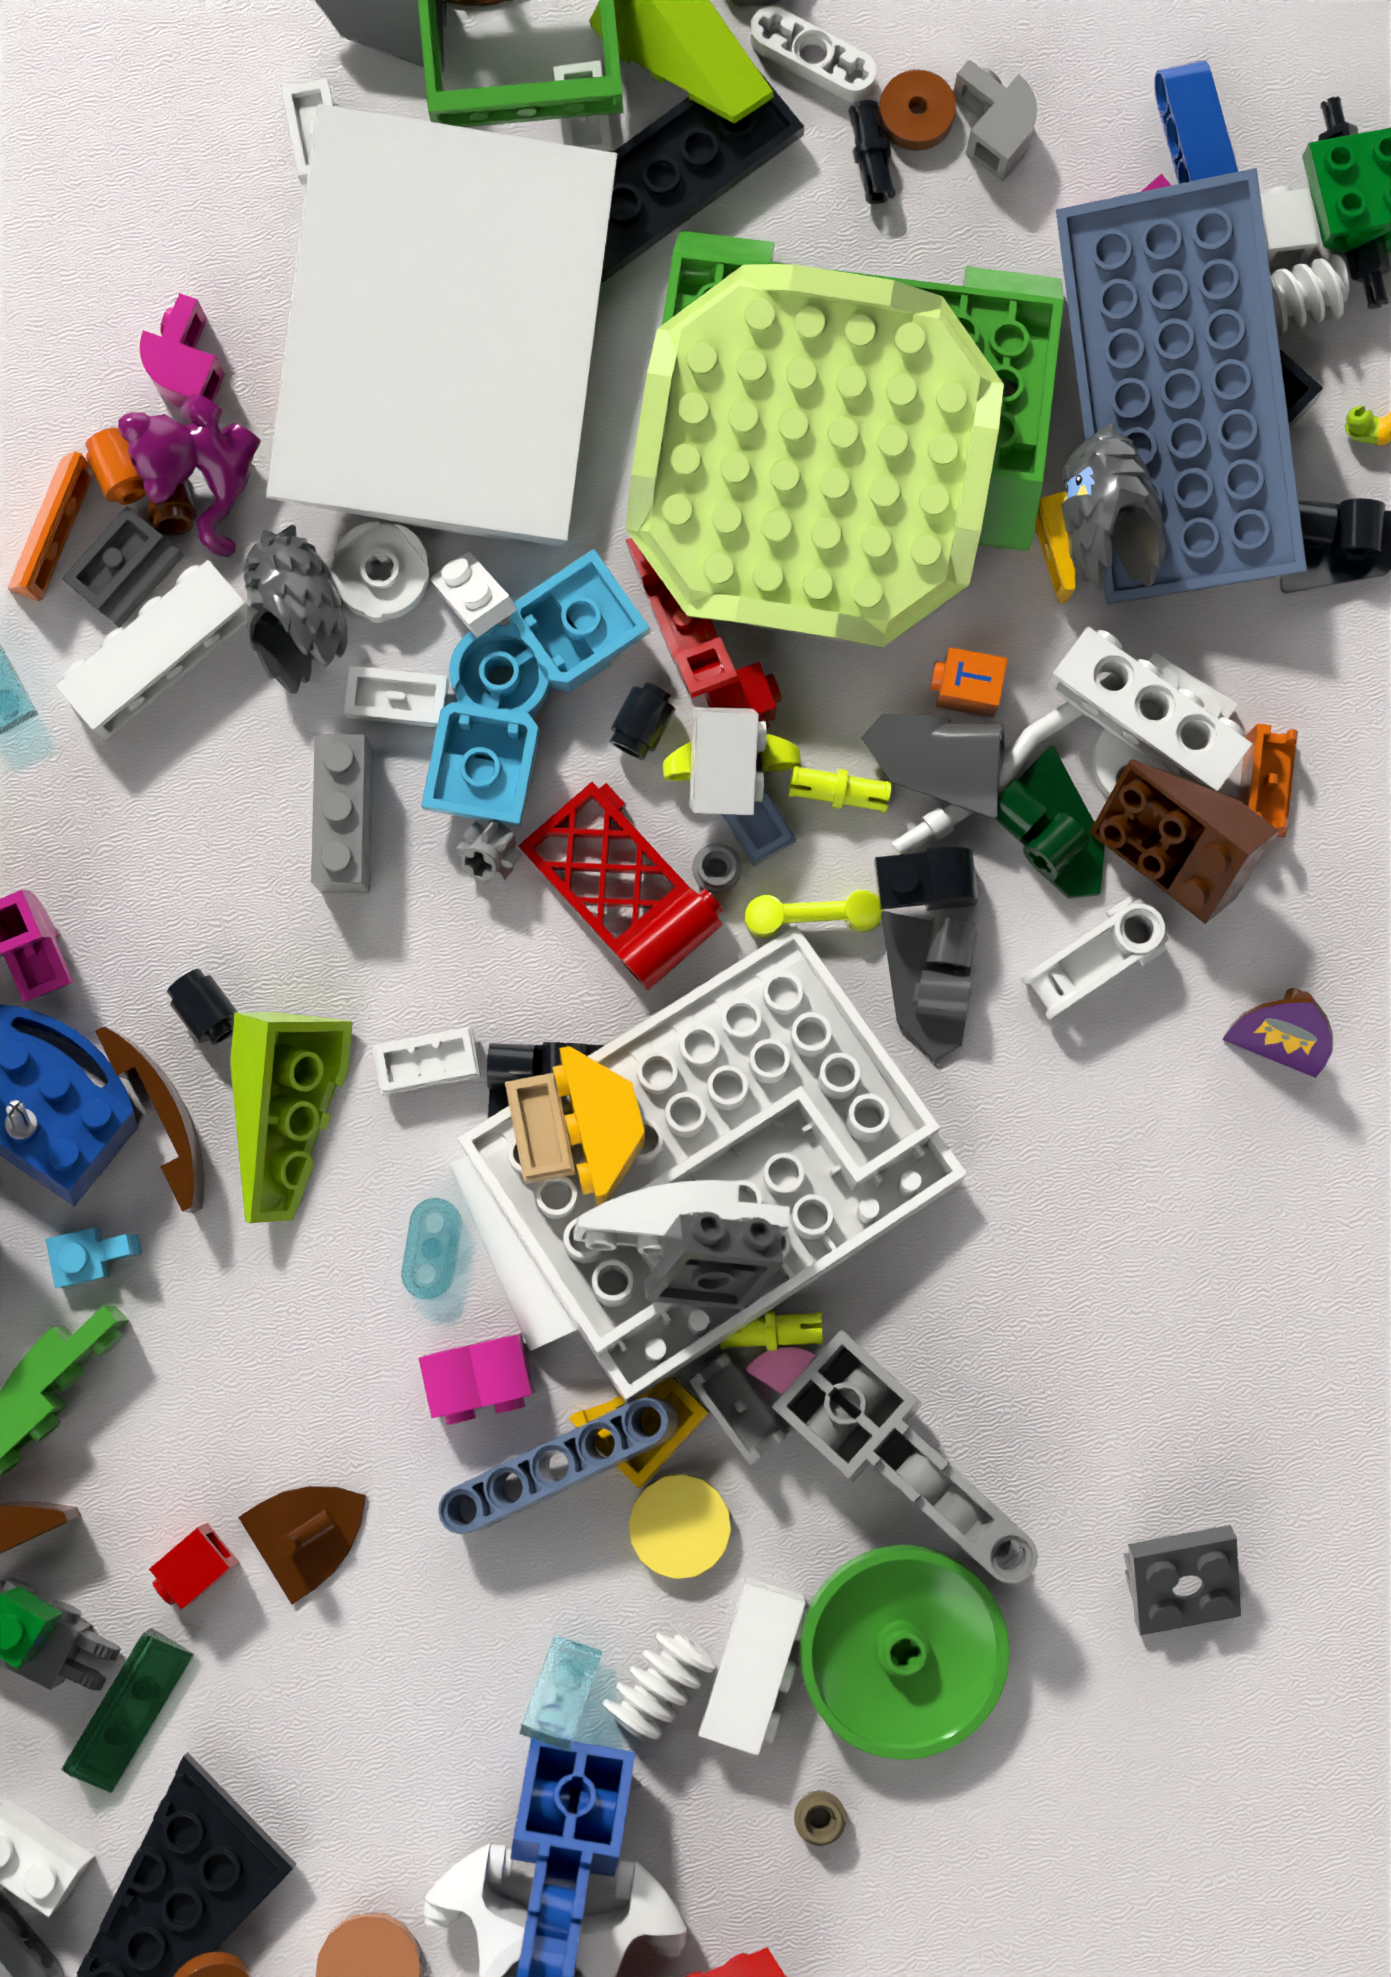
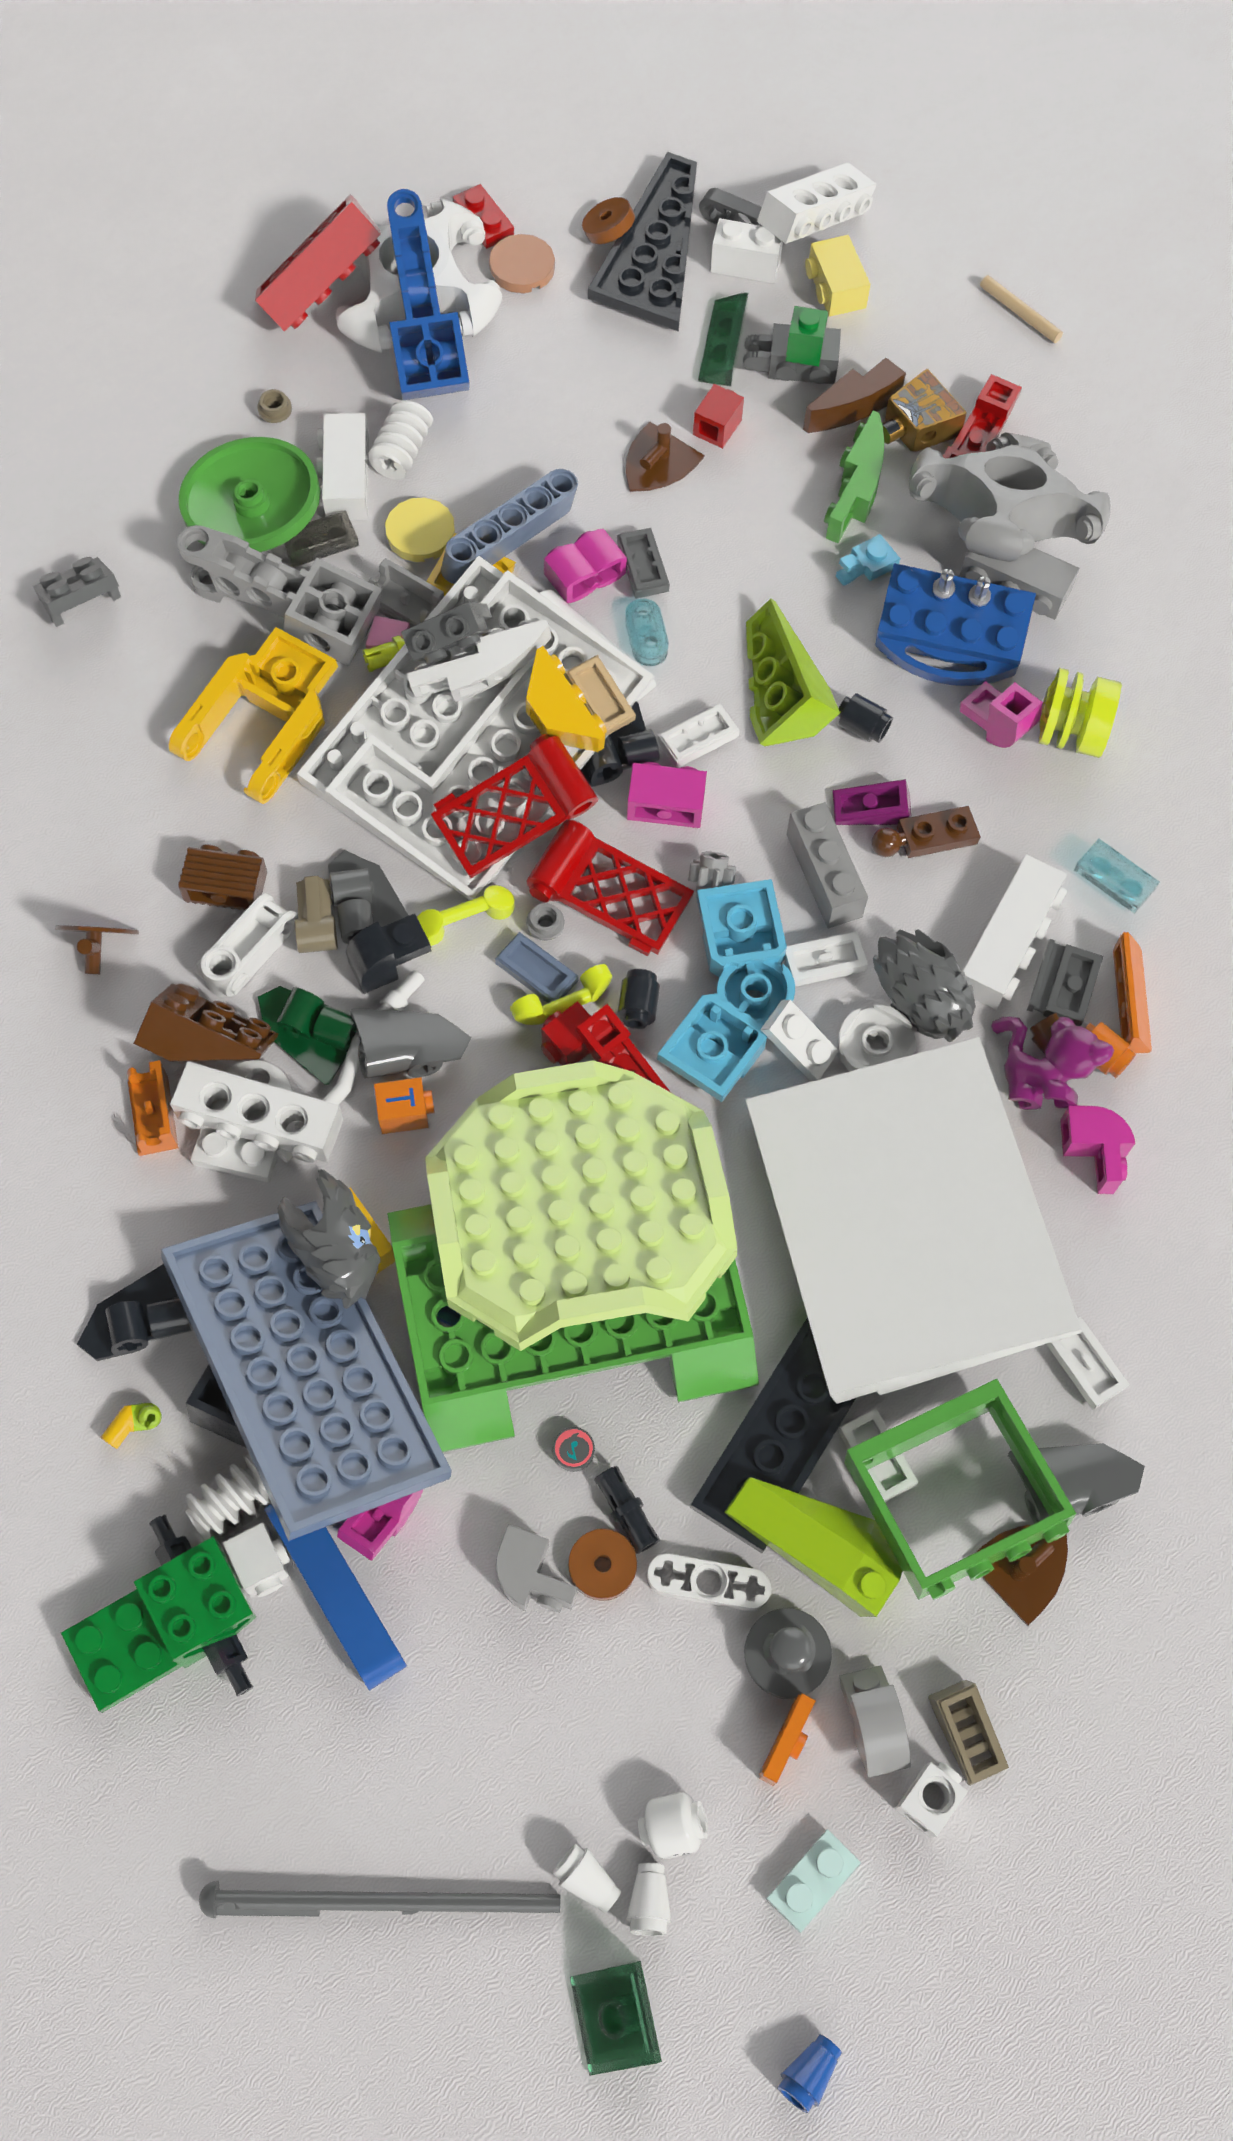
camera: 155 degrees right, 15 degrees down
(186, 1171) = (897, 674): reddish brown slope -> none
(194, 821) = (928, 833): none -> reddish brown plate
(246, 889) = (872, 804): none -> magenta slope
(394, 1355) = (643, 563): none -> dark grey plate
(501, 985) = (666, 795): none -> dark pink brick
(561, 1693) = (460, 413): clear light blue plate -> none
(640, 1027) = (556, 778): none -> red piece
(725, 760) = (565, 973): white brick -> none
(817, 1552) = (322, 539): none -> clear smoke plate
(839, 788) = (475, 1001): neon yellow pin -> none
(905, 235) = (573, 1449): none -> dark grey tile
(943, 1327) = (279, 679): none -> yellow plate
(1003, 956) = (315, 924): none -> dark tan piece
(1101, 1062) = (222, 877): none -> reddish brown brick

